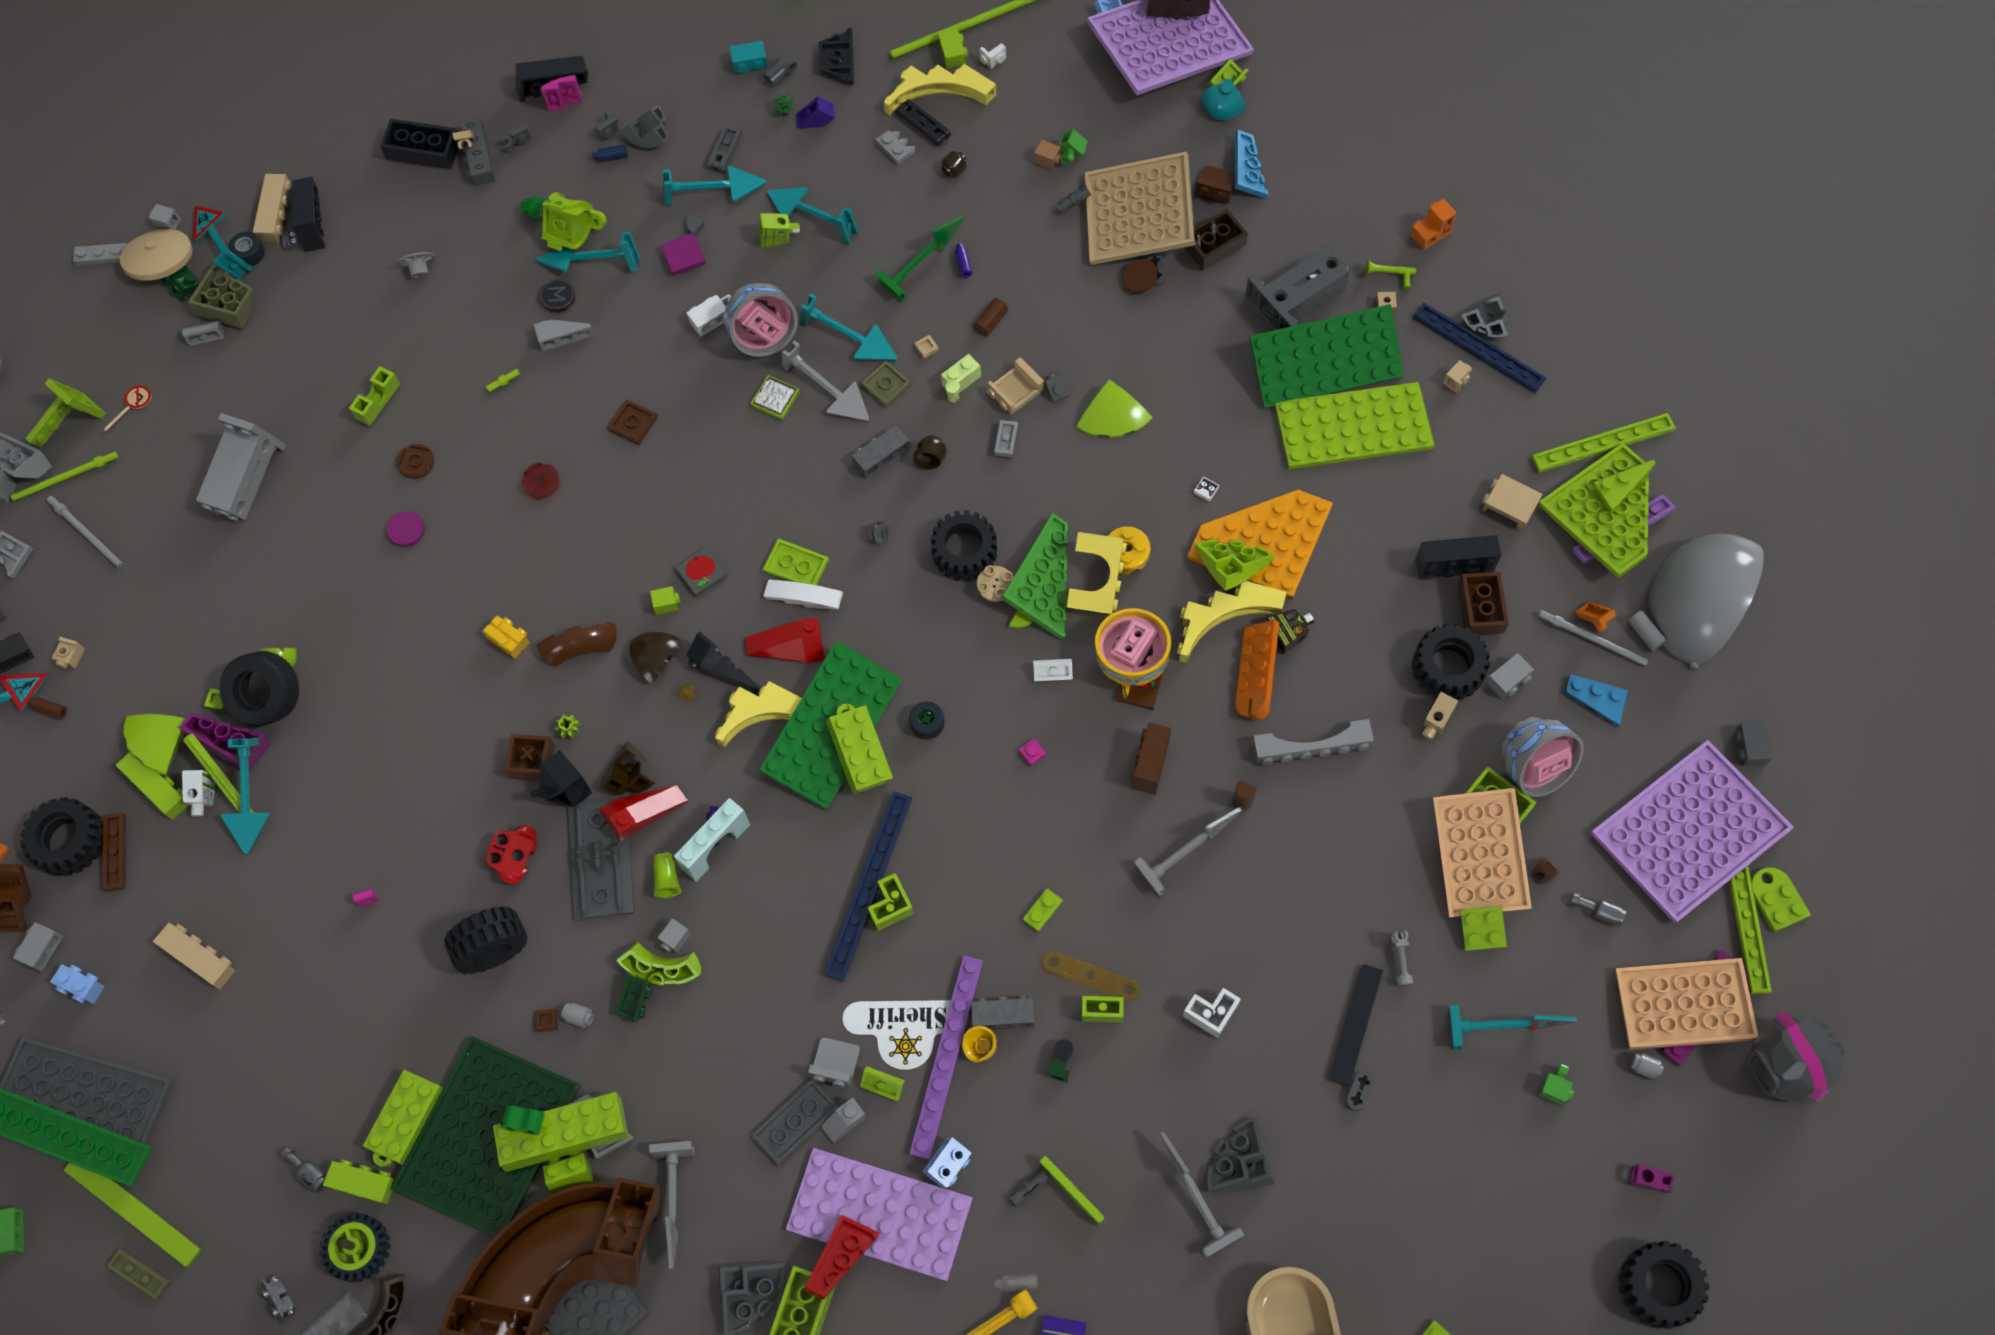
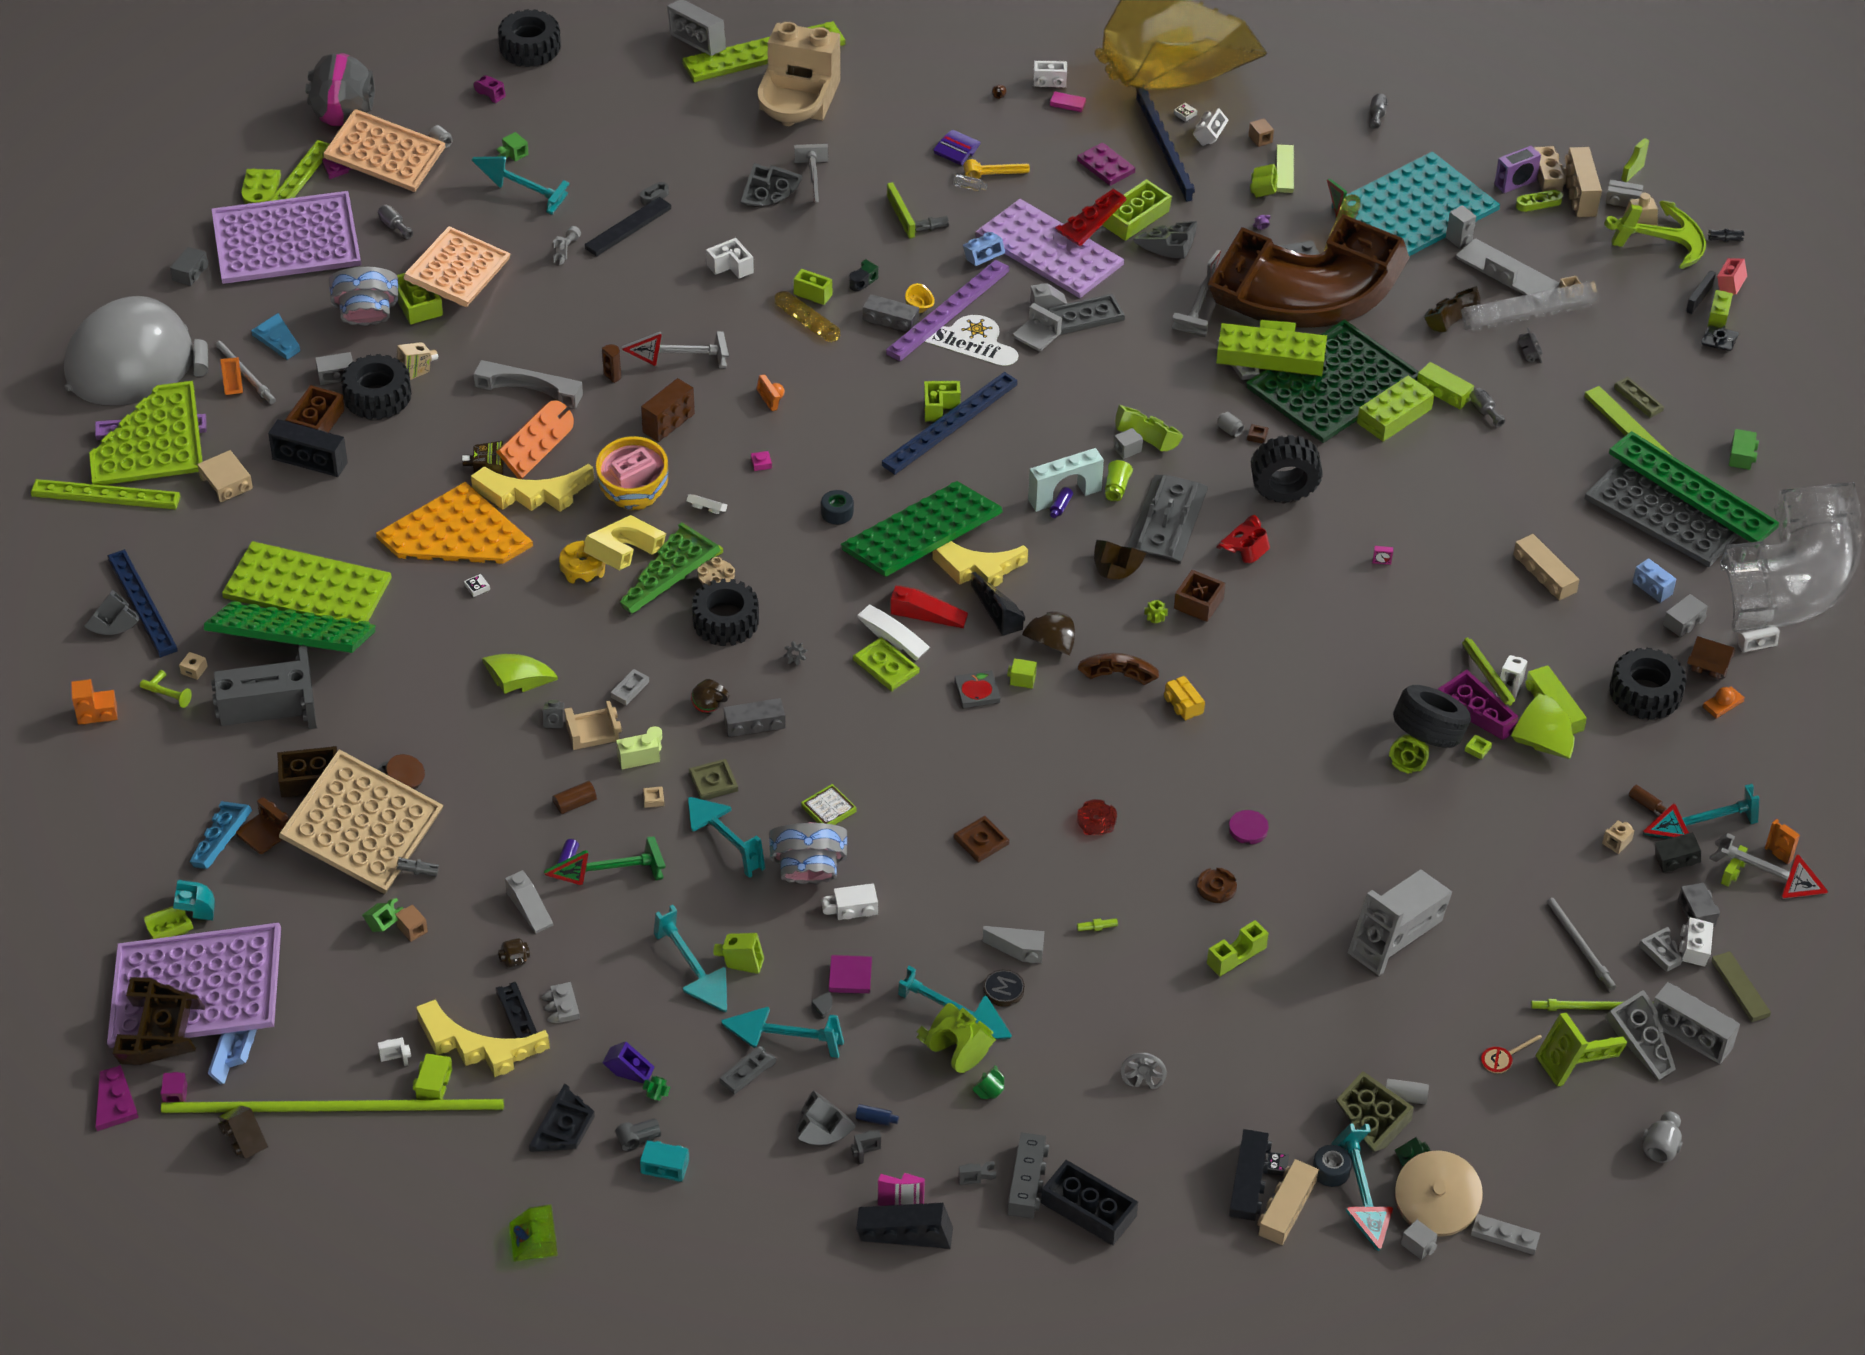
camera: 160 degrees left, 20 degrees down
(114, 852) = (1603, 665): reddish brown plate -> none
(245, 825) = (1458, 657): teal piece -> none
(354, 1247) = (1459, 349): wheel -> none
(464, 136) = (1036, 1171): tan tile -> none
(522, 1120) = (1297, 345): green axle -> none
(561, 782) = (1176, 560): black piece -> none
(633, 997) = (1177, 414): dark green bracket -> none
(637, 811) = (1122, 524): red wedge -> none
(687, 692) = (1036, 600): clear yellow plate -> none
(848, 404) = (761, 771): light grey piece -> none
(858, 748) = (908, 495): lime piece -> none
(882, 1083) = (1001, 305): lime plate -> none
(972, 209) = (527, 901): none -> light grey slope
(1042, 910) = (819, 364): lime plate -> none
(1068, 842) = (770, 392): none -> orange tile
(1232, 561) = (498, 511): lime brick -> none
(1458, 376) = (183, 582): tan brick -> none
(1483, 928) = (491, 236): lime plate -> none
(1548, 870) = (413, 252): reddish brown tile -> none
(1617, 486) = (132, 444): lime wing -> none

